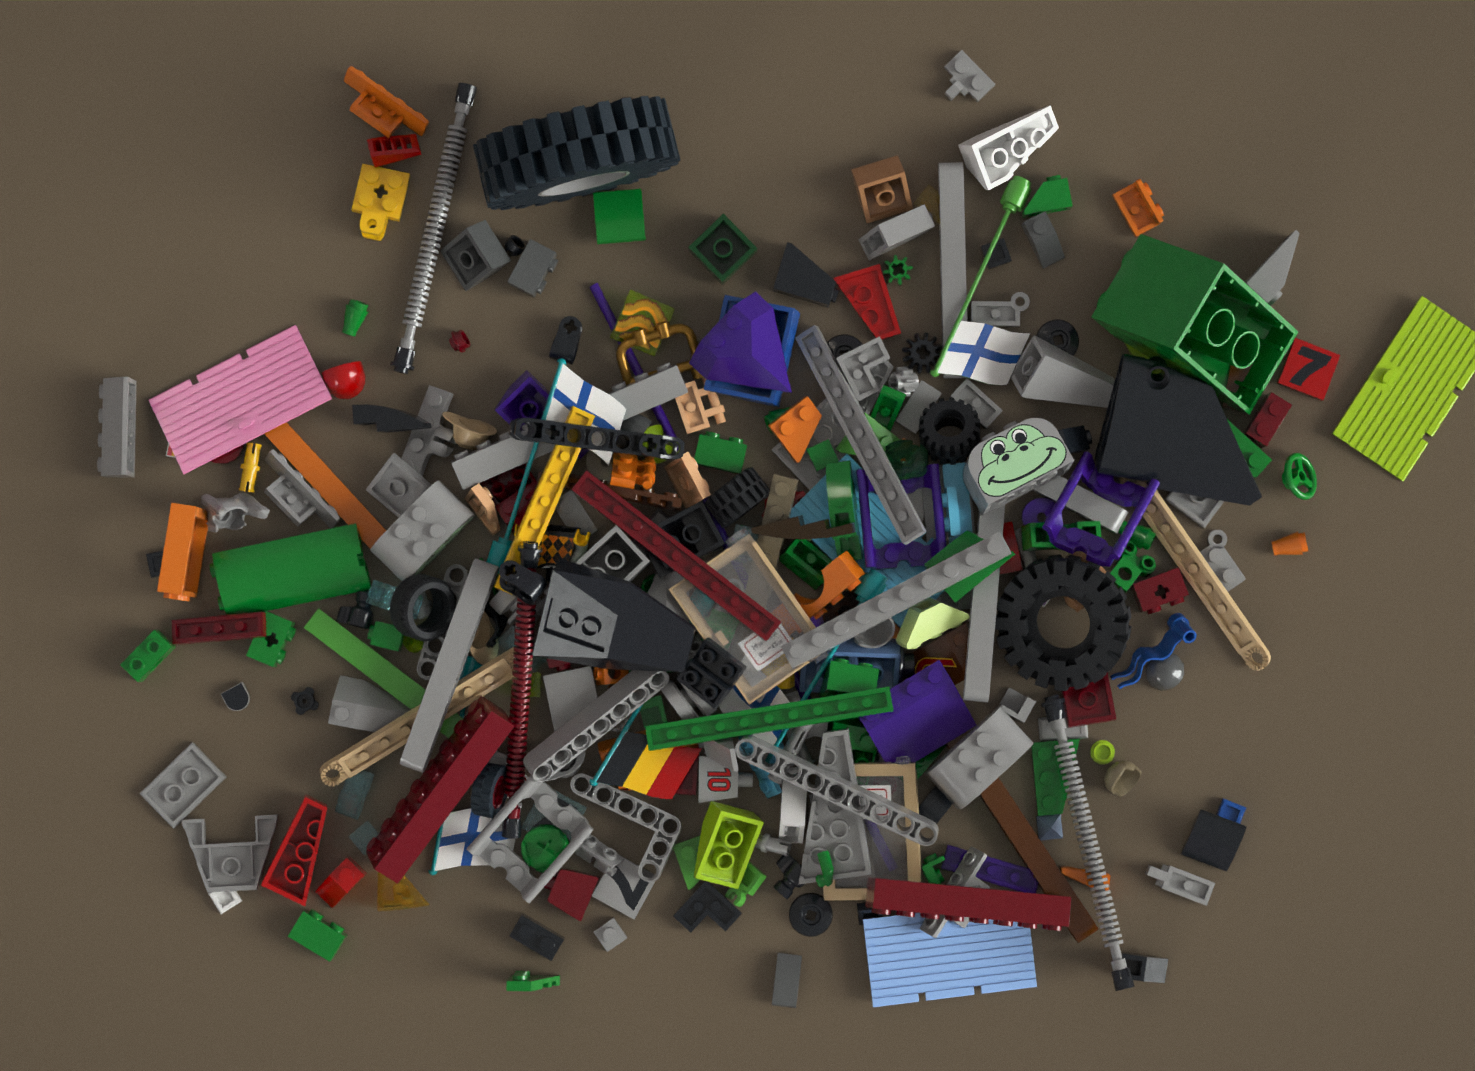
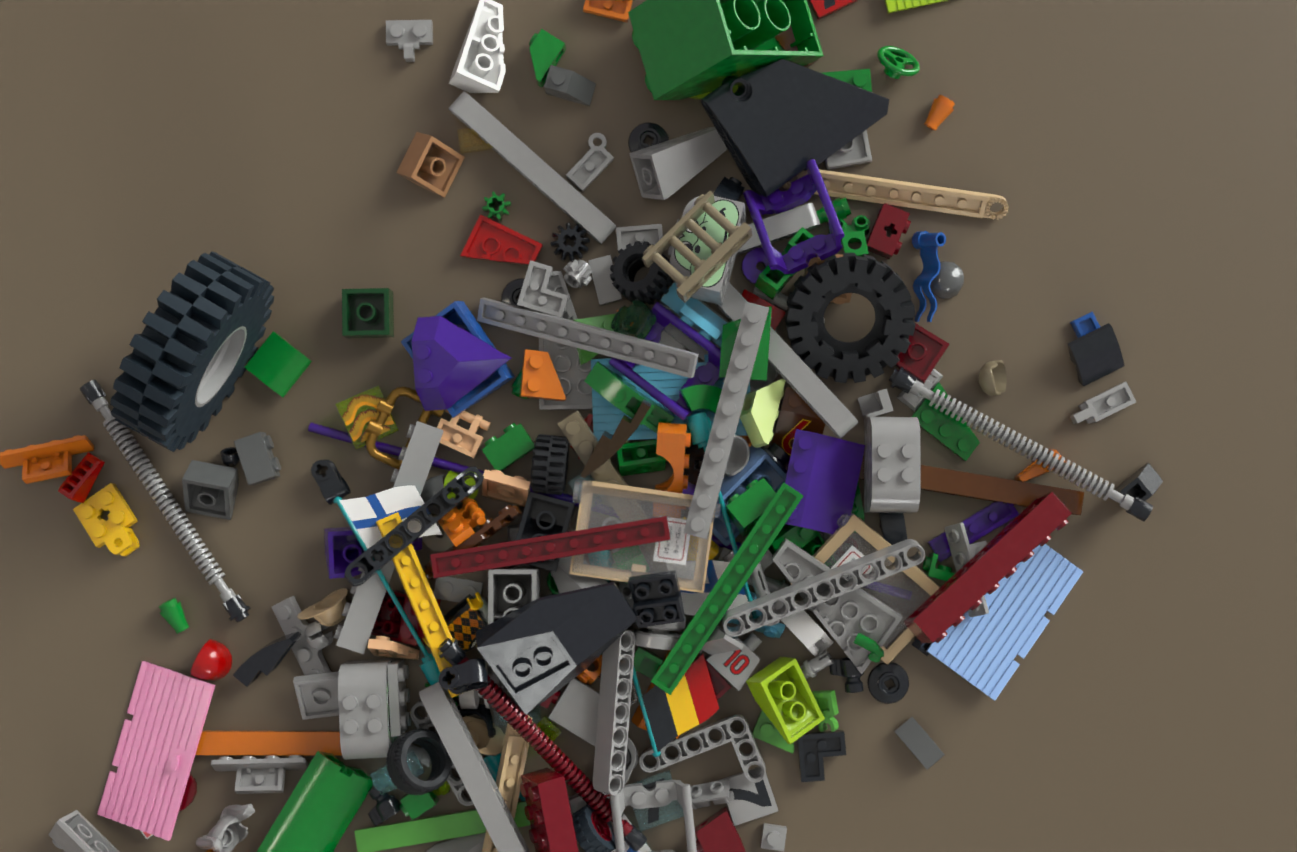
camera: 40 degrees left, 0 degrees up
(250, 467) = (210, 786): yellow pin -> none
(453, 547) = (398, 697): none -> light grey plate
(459, 341) = (260, 556): dark red plate -> none
(542, 846) = (667, 828): green tile -> none
(804, 279) = (442, 276): black slope -> none
(822, 454) = (575, 377): green tile -> none
(887, 406) = (585, 300): green slope -> none
(896, 232) = (469, 182): light grey slope -> none
(896, 565) = (701, 397): none -> green tile
(978, 348) = (601, 201): flag -> none
(994, 476) = (703, 268): none -> dark tan fence
(999, 255) = (549, 128): black plate -> none
(1049, 827) = (980, 460): sand blue slope -> none
(1102, 752) = (962, 375): lime plate -> none
(1221, 561) = (906, 170): light grey hinge -> none
(1267, 420) = (838, 46): dark red brick -> none

